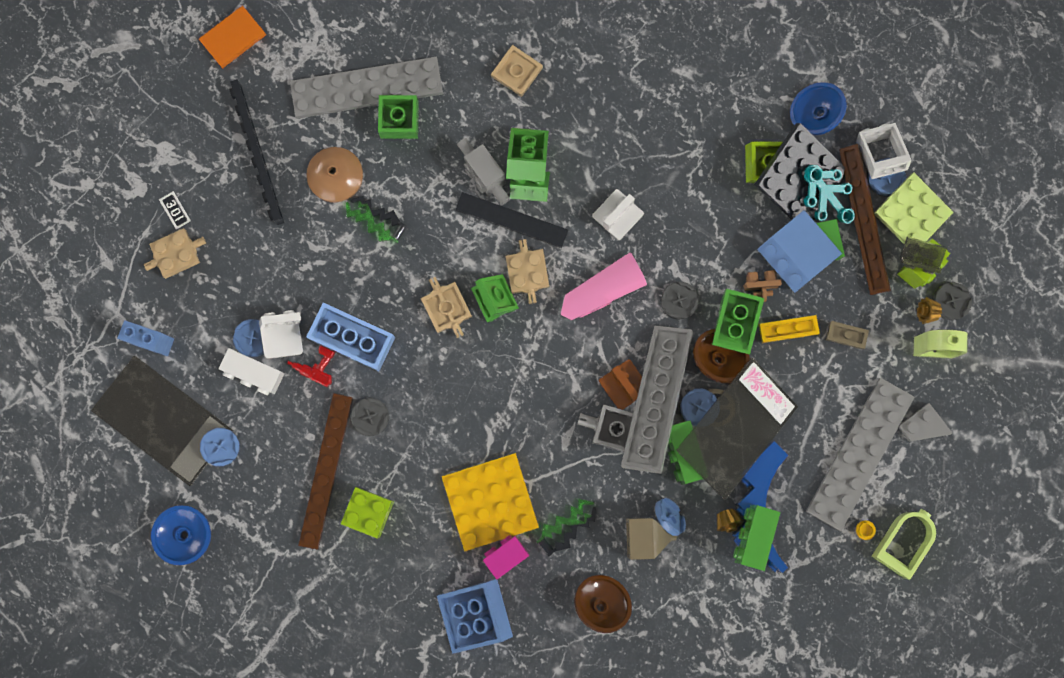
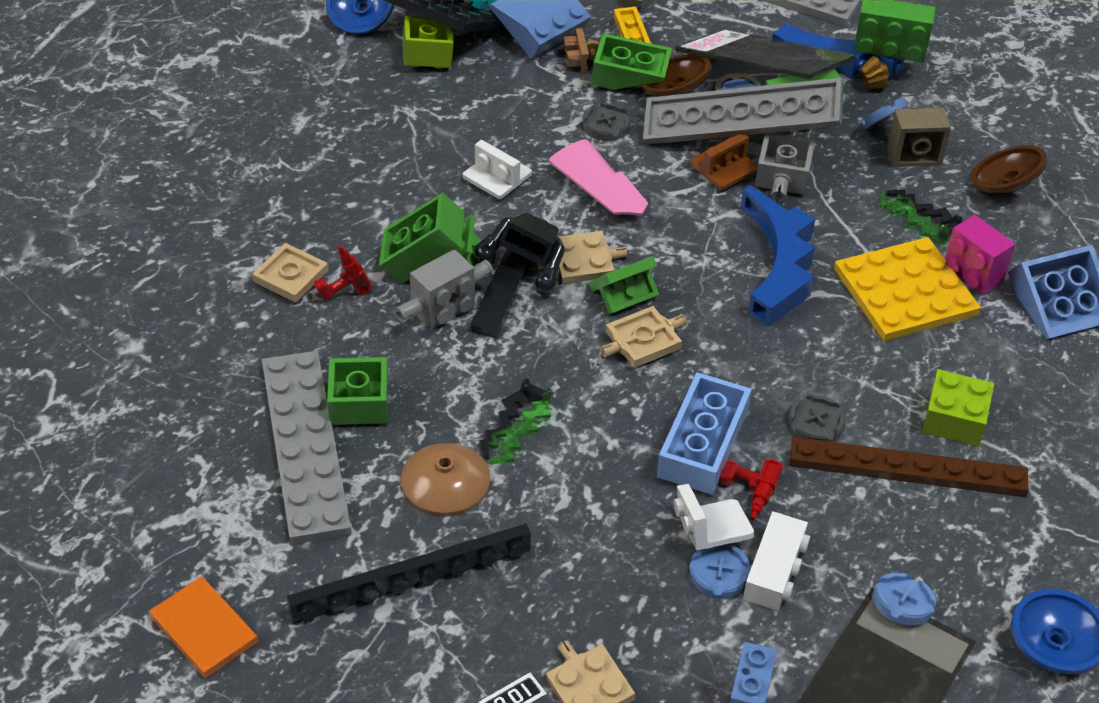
camera: 95 degrees left, 35 degrees down
(504, 107) = (353, 274): none -> red piece
(520, 421) = (789, 237): none -> blue arch
(529, 230) = (531, 239): none -> black torso

